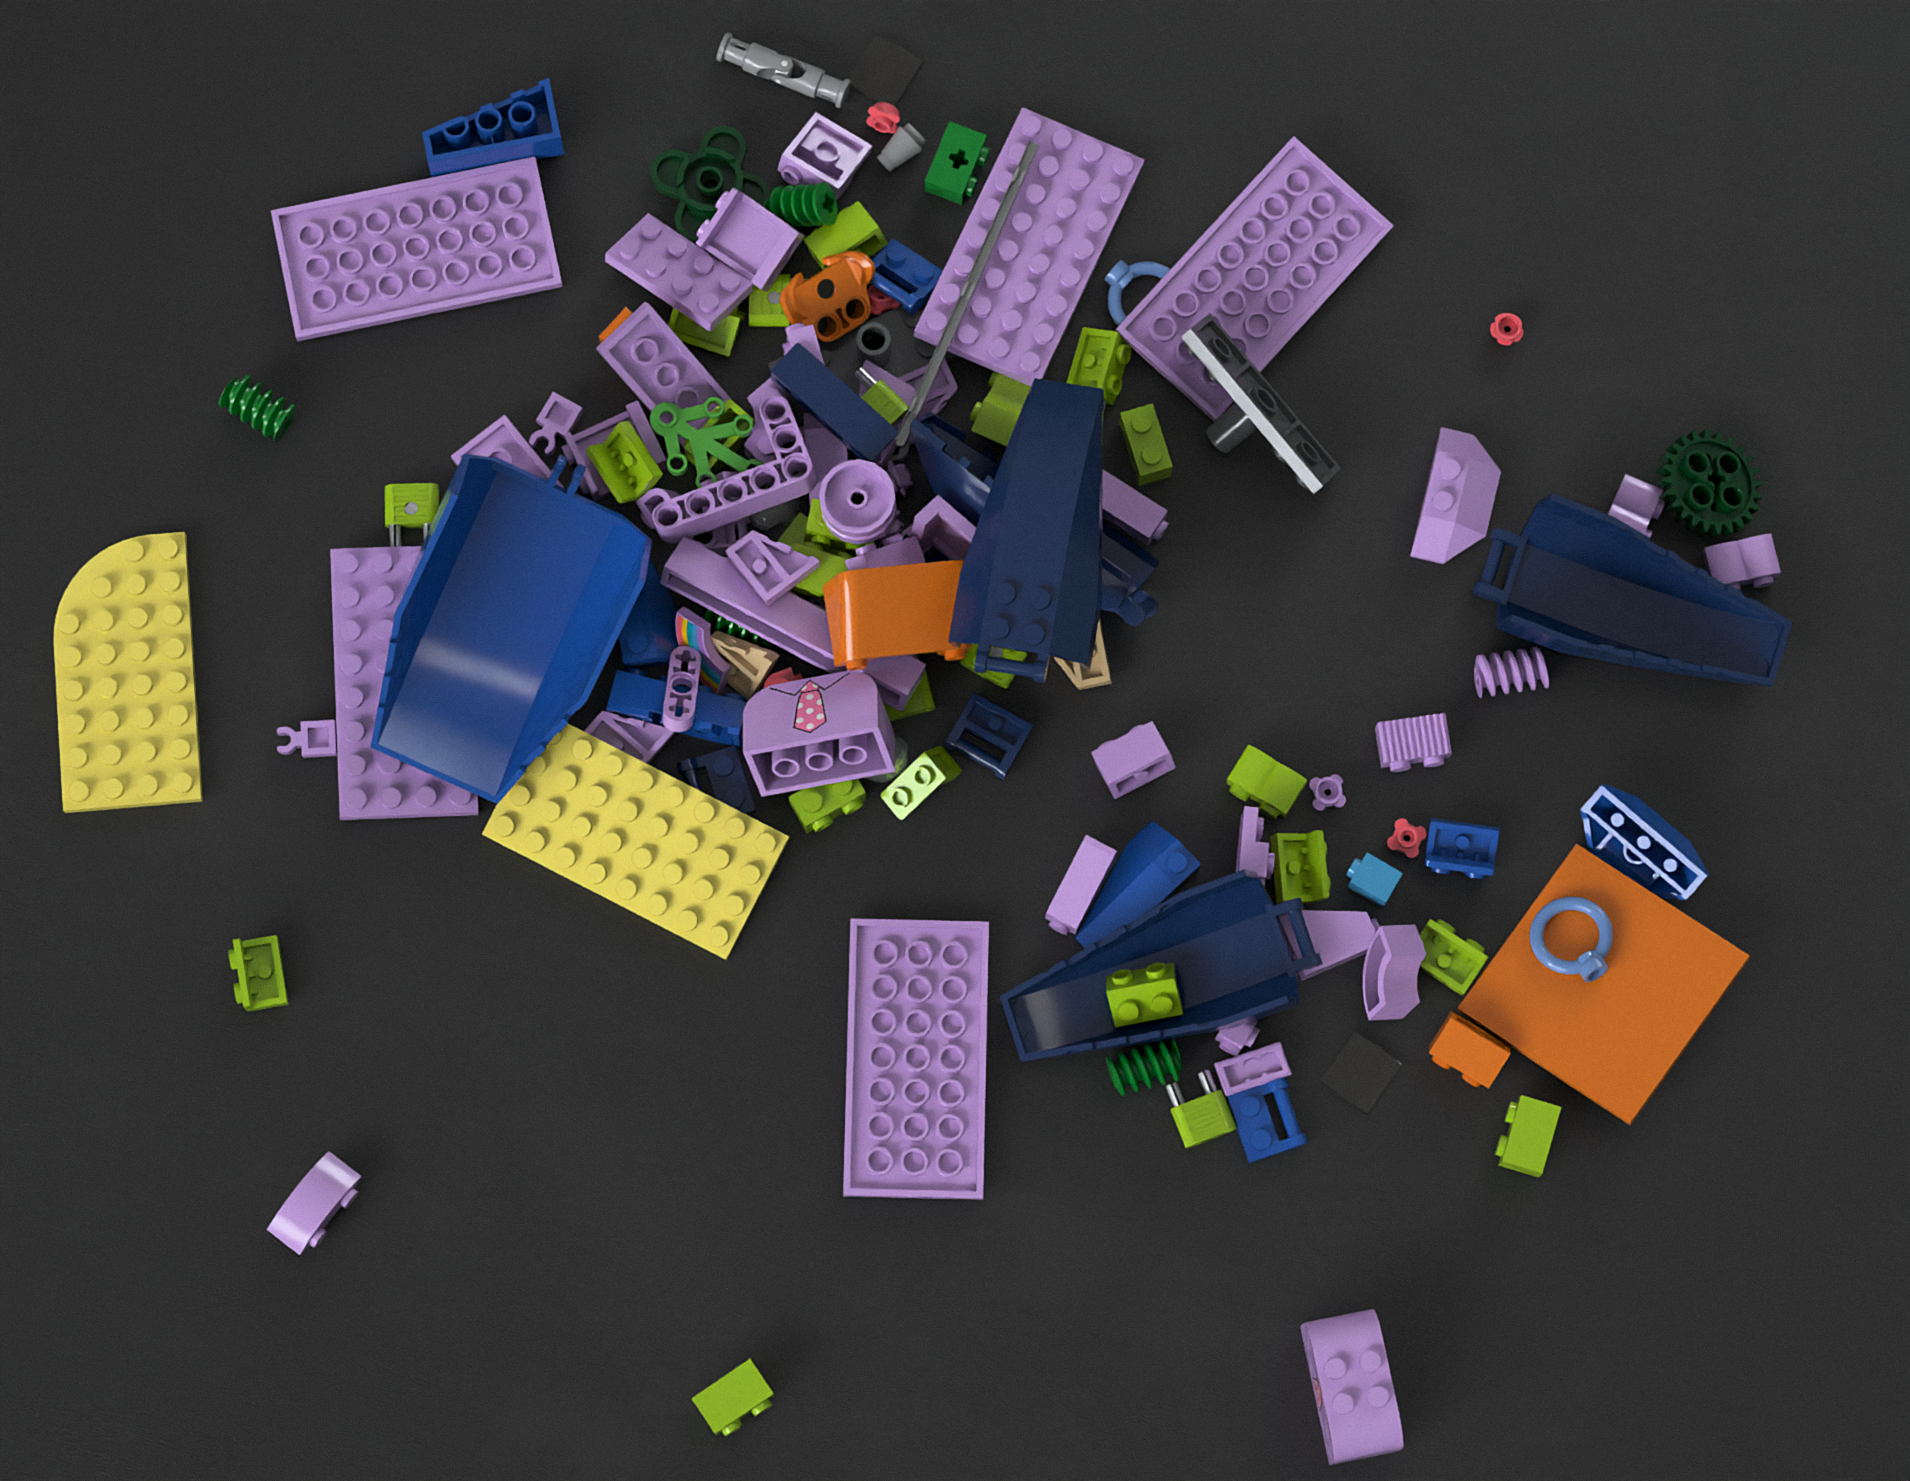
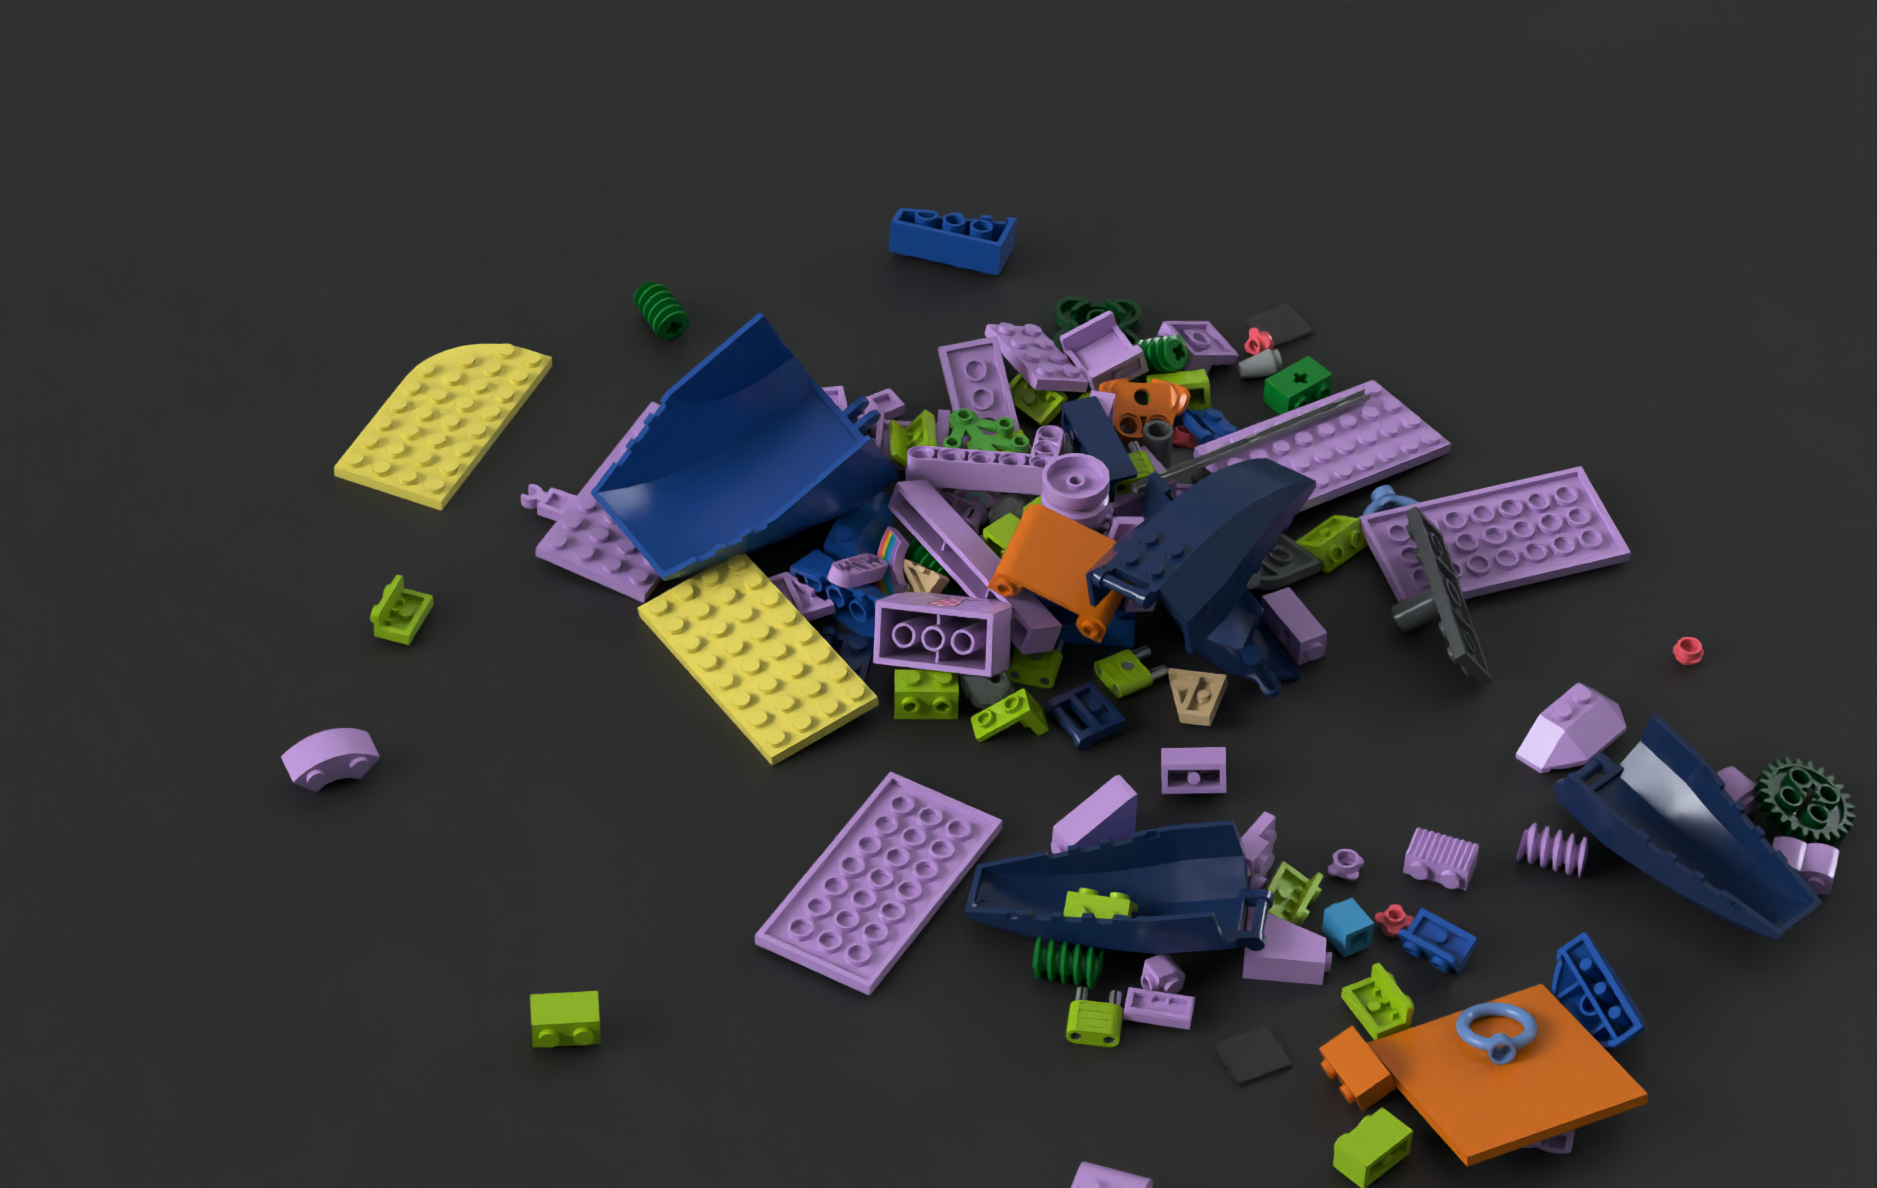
camera: 30 degrees right, 35 degrees down
(416, 248) = (848, 279): lavender plate -> none
(770, 565) = (980, 513): lavender wing -> none
(771, 65) = (1200, 291): light grey piece -> none
(1145, 444) = (1337, 595): lime brick -> none
(1256, 1125) = (1137, 1047): blue plate -> none
(1265, 782) = (1300, 835): lime brick -> none
(1392, 972) = (1322, 987): lavender brick -> none

